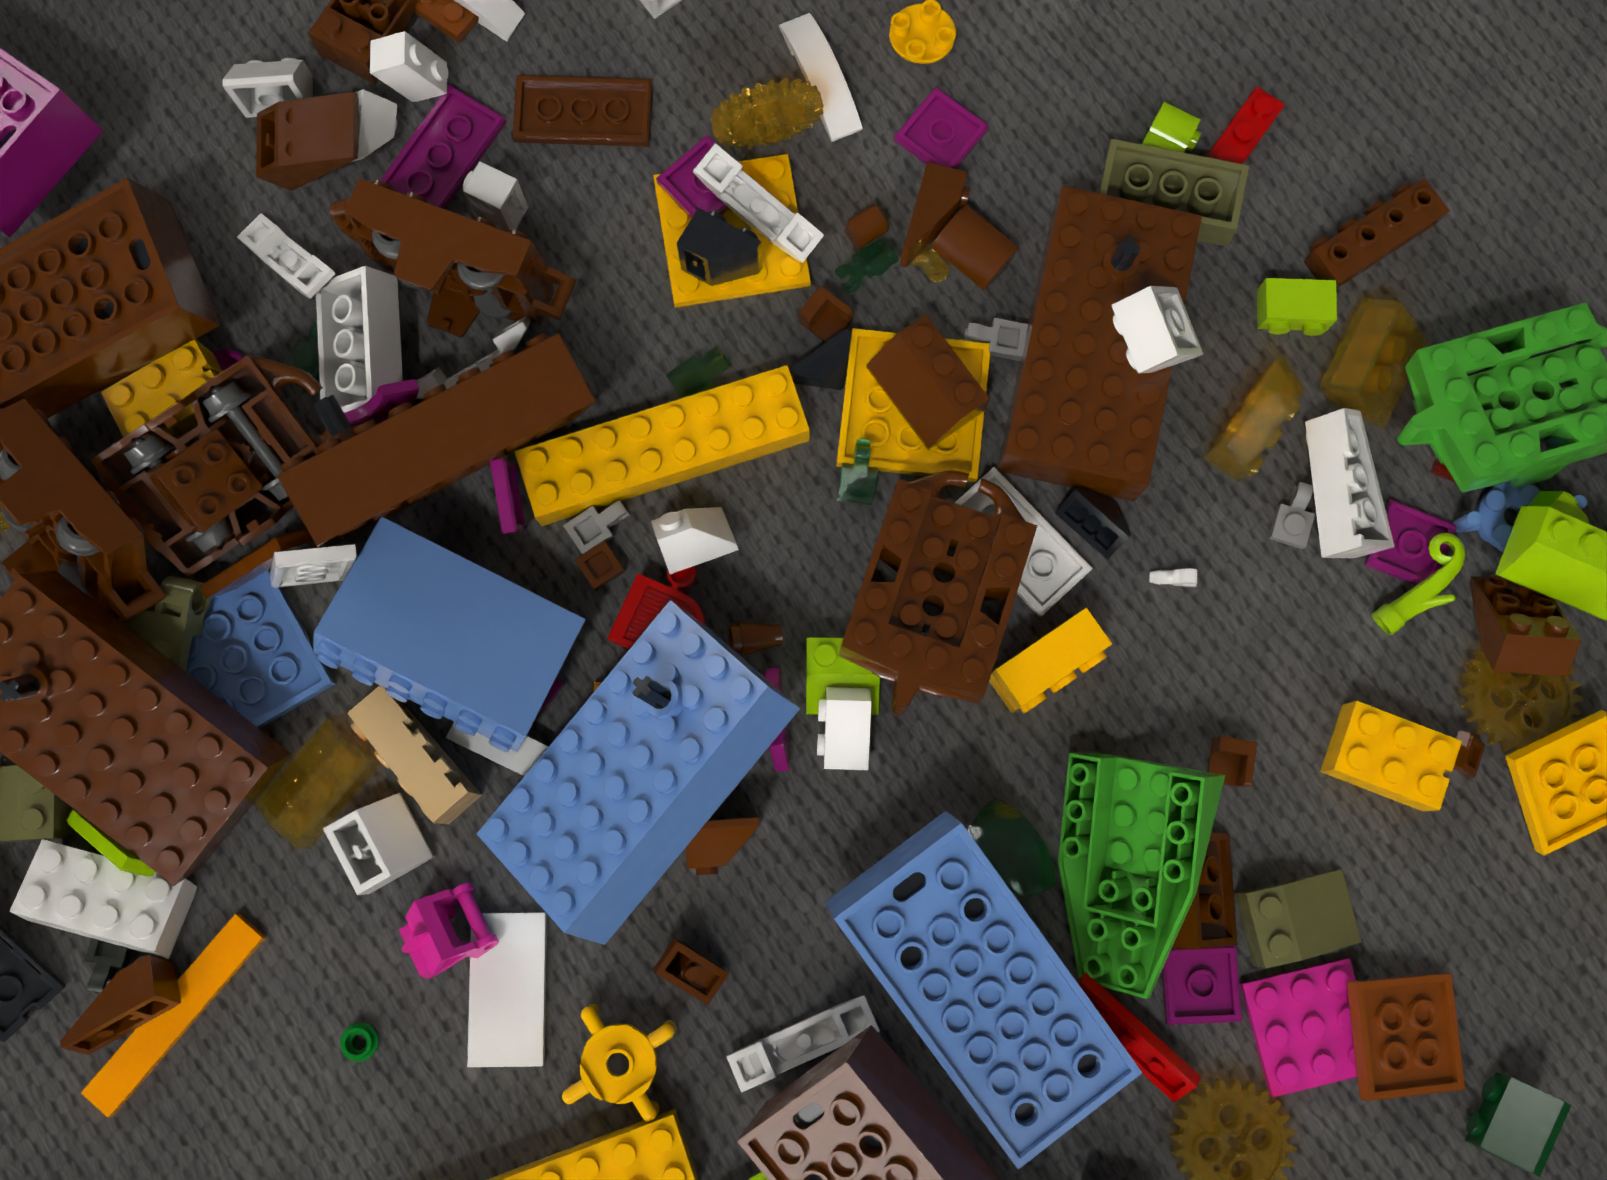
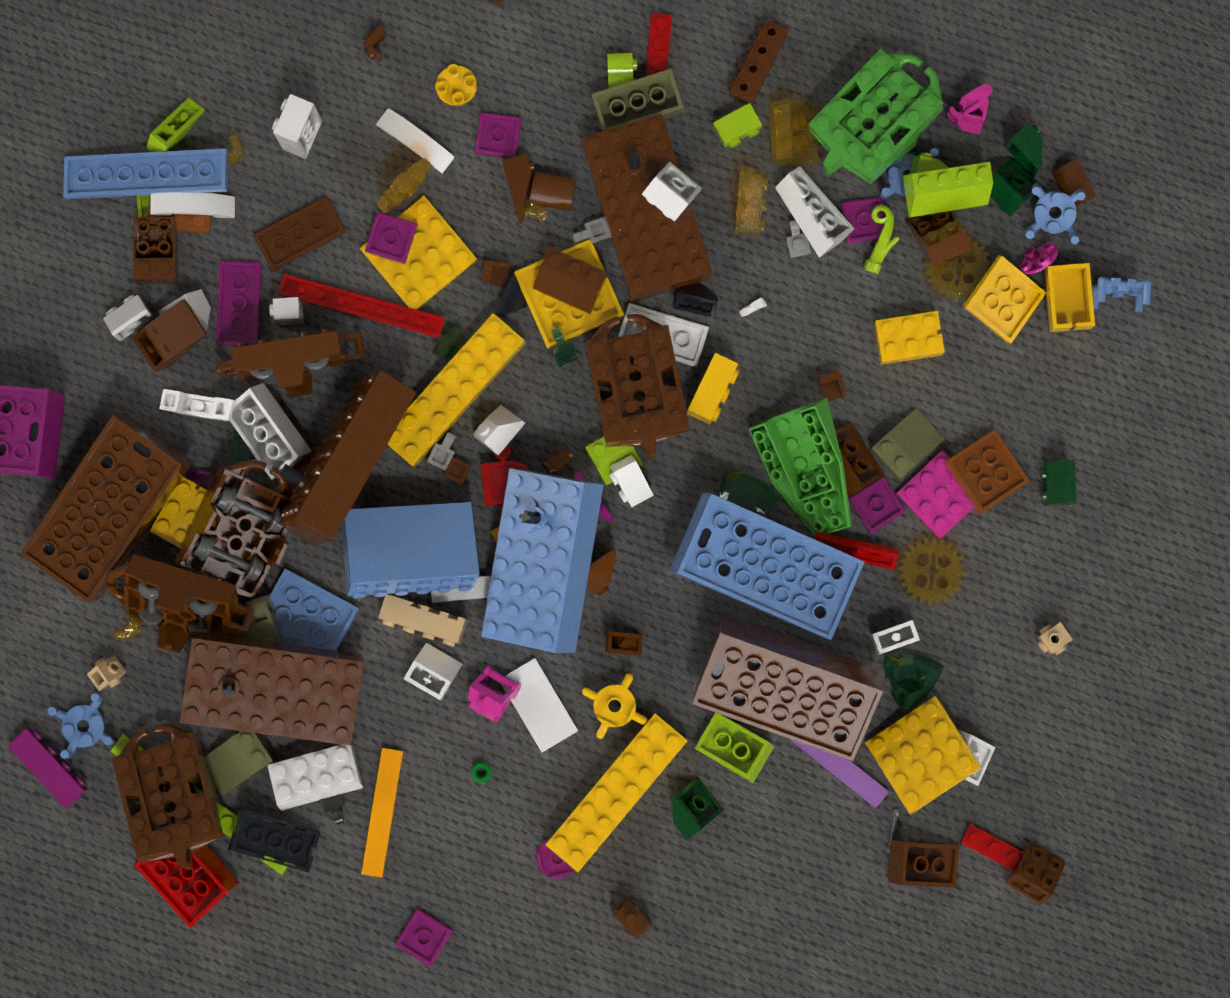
camera: 25 degrees left, 5 degrees up
(107, 846) = (302, 746): lime tile -> none
(126, 1003) = (357, 818): reddish brown slope -> none
(205, 481) = (242, 545): reddish brown bracket -> none
(254, 563) = (292, 569): reddish brown tile -> none
(312, 565) = (321, 554): white tile -> none
(316, 785) = (383, 661): clear yellow slope -> none
(385, 399) = (305, 454): magenta tile -> none
(408, 67) = (198, 266): white brick -> none
(504, 340) = (316, 427): white slope -> none
(508, 496) = (395, 466): magenta tile -> none
(609, 256) = (362, 306): none -> red plate
(717, 250) = (423, 274): black slope -> none
(756, 205) = (428, 236): white slope -> none
(800, 1042) = (696, 647): white slope -> none
(866, 227) = (489, 212): reddish brown brick -> none
(869, 261) = (501, 230): clear green plate -> none
(1469, 754) = (947, 314): reddish brown tile -> none

